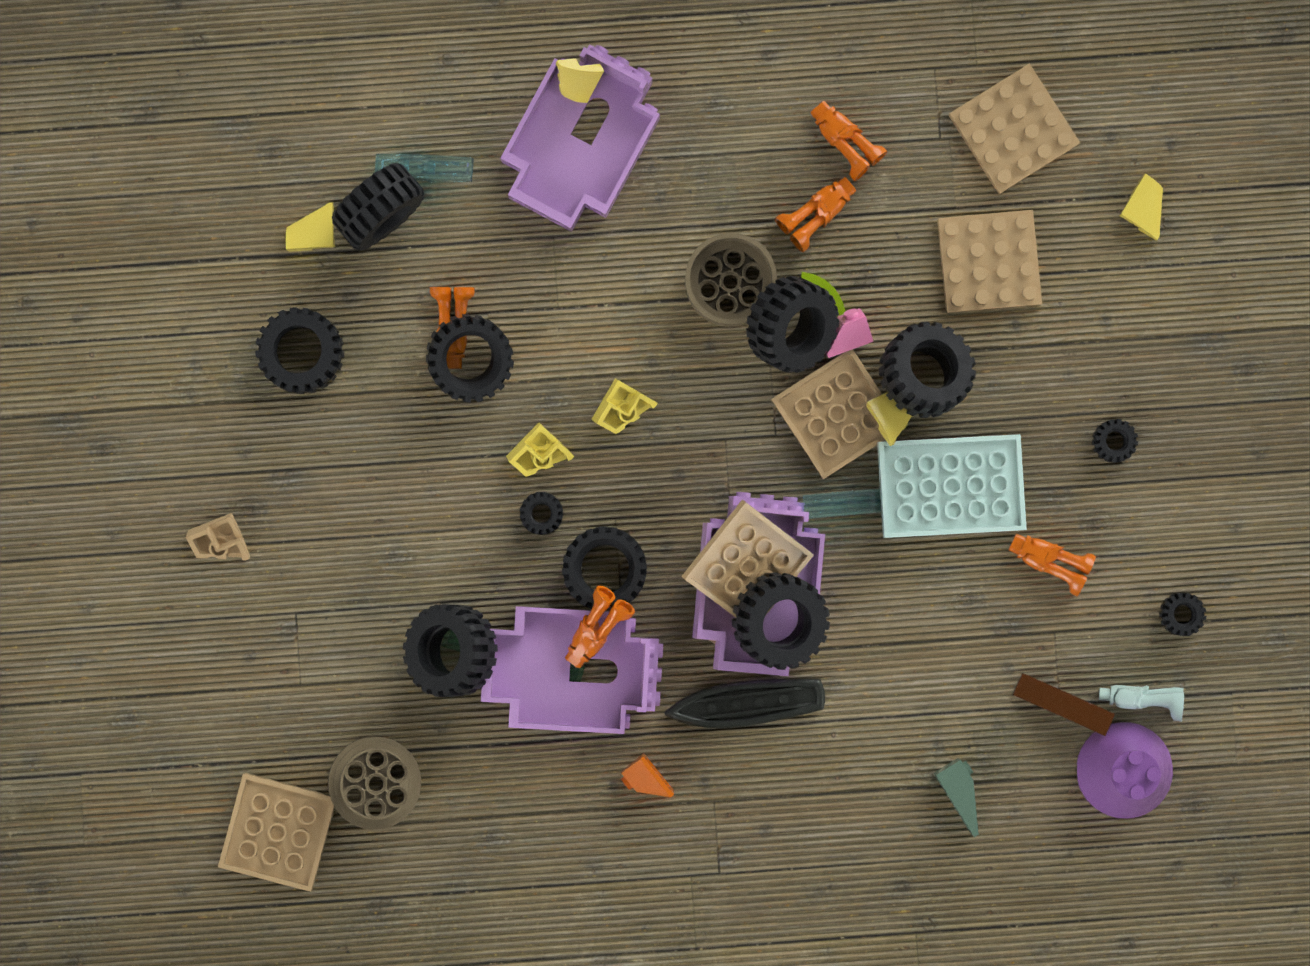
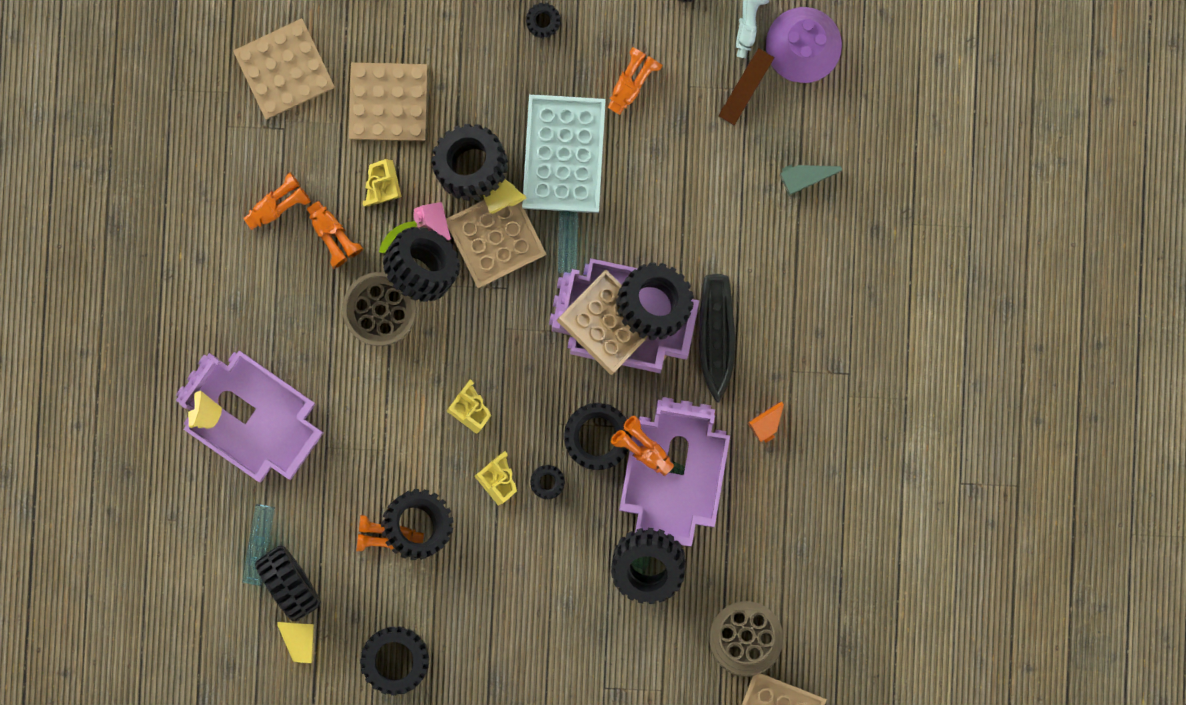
camera: 90 degrees left, 0 degrees up
(887, 265) = (382, 183): none -> light yellow slope

